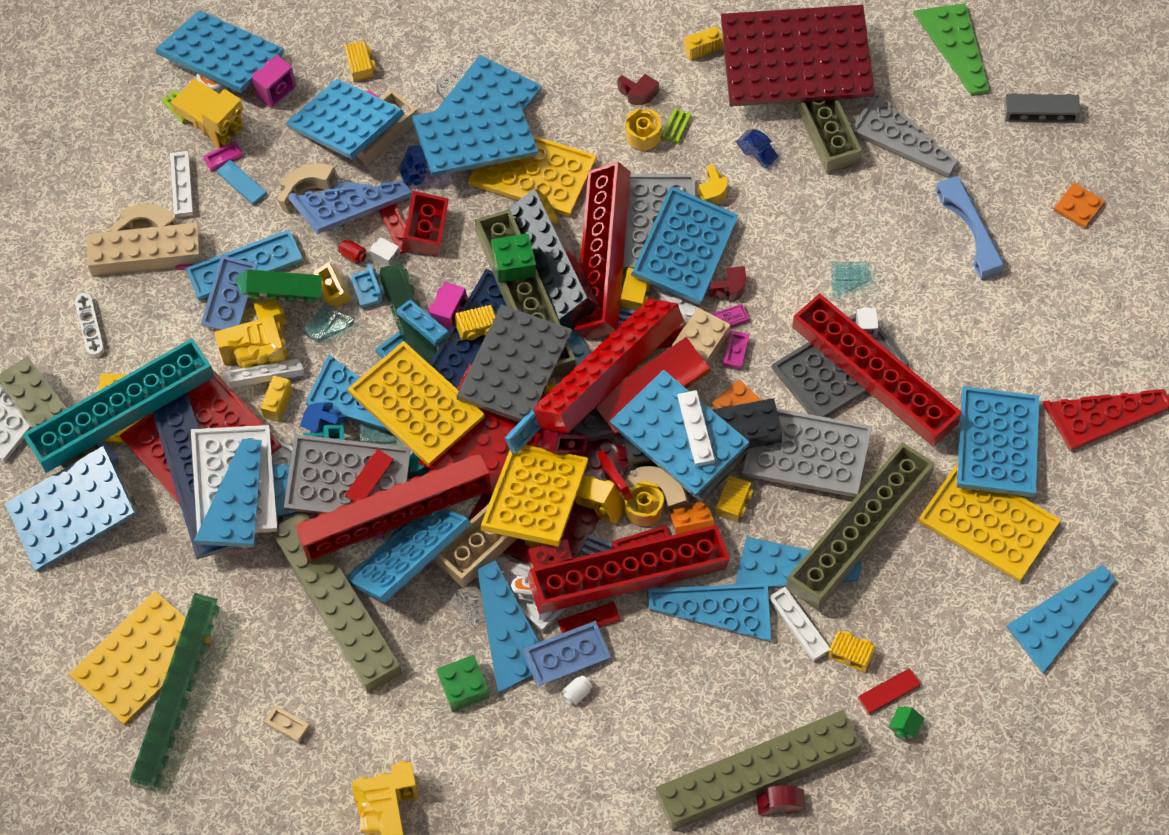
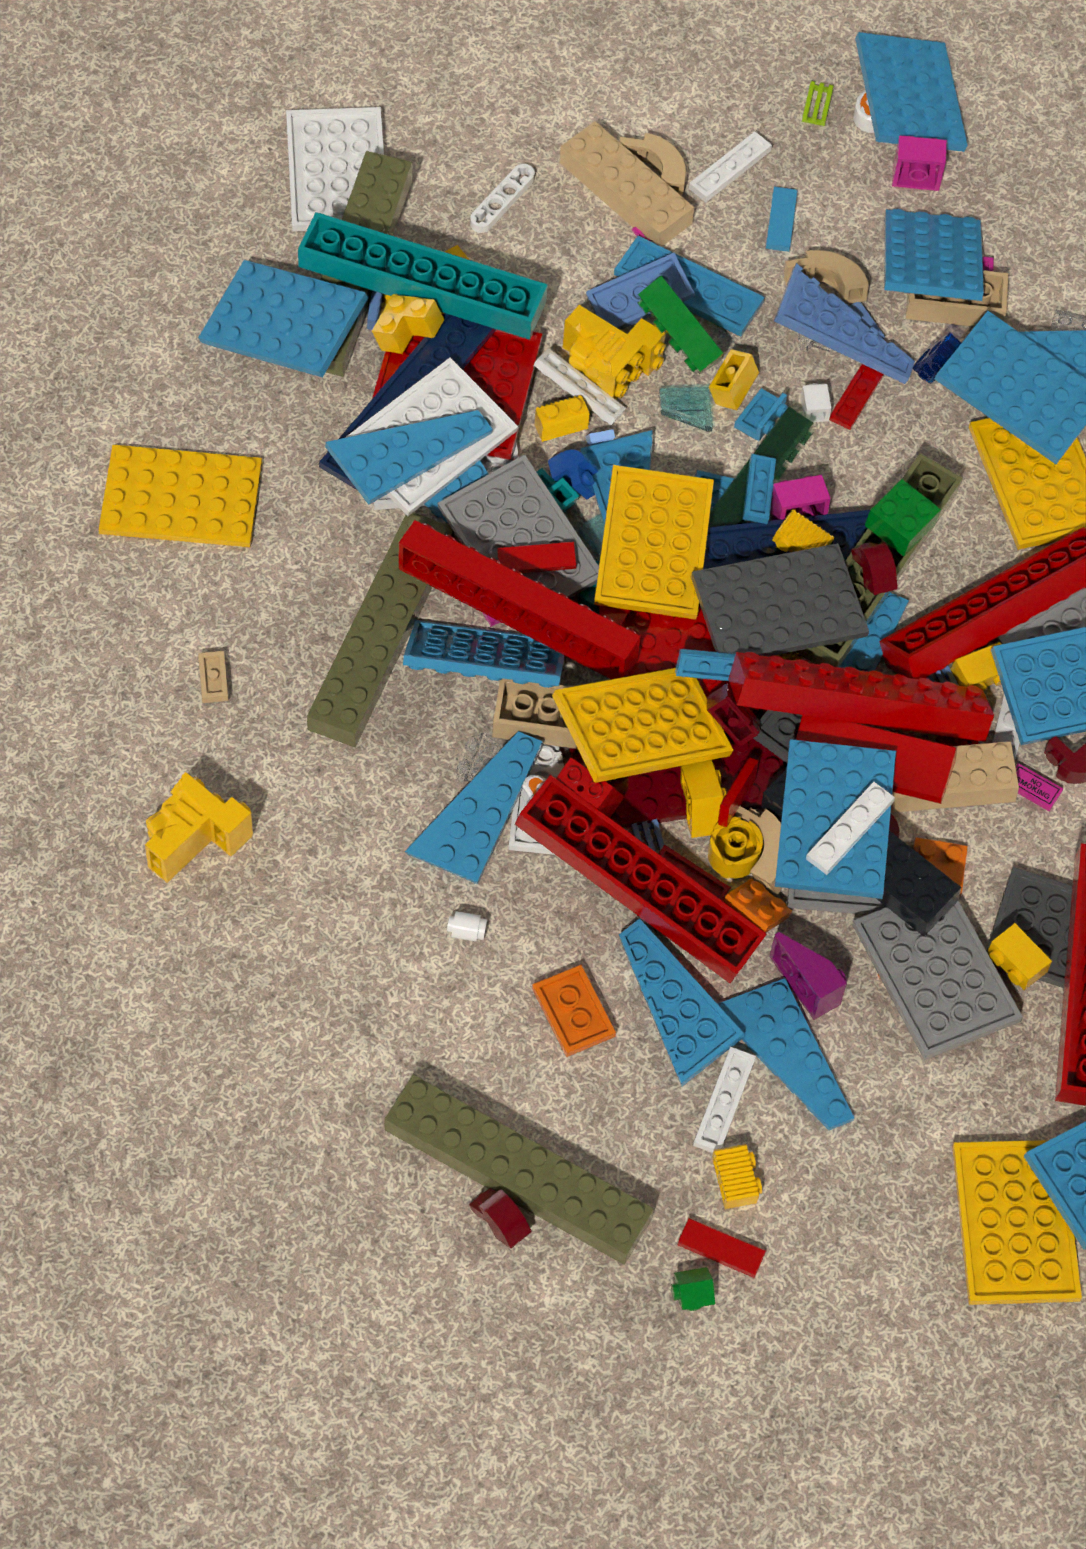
camera: 45 degrees right, 0 degrees up
(137, 437) = (403, 319): none -> yellow brick
(174, 692) = (164, 548): clear green brick -> none
(211, 112) = (828, 130): yellow brick -> none
(222, 155) = (791, 178): dark pink tile -> none
(307, 386) = (600, 437): none -> light blue tile
(352, 251) = (790, 372): red brick -> none
(359, 60) = (1019, 225): yellow brick -> none
(425, 223) = (880, 414): red brick -> none
(462, 683) = (386, 809): green brick -> none
(536, 293) = (877, 567): none -> dark red brick
(554, 258) = (944, 560): brick -> none
(566, 653) = (498, 886): medium blue plate -> none
(603, 615) = (558, 886): red tile -> none
(678, 668) = (573, 1010): none -> orange plate
(733, 499) = (821, 932): yellow brick -> none
(736, 350) = (1000, 820): dark pink plate -> none
(758, 521) = (809, 975): none -> magenta slope
(833, 401) = (1019, 957): none -> yellow brick
(859, 526) = (891, 1083): olive brick -> none
(1052, 623) = (951, 1374): dark azure wing -> none

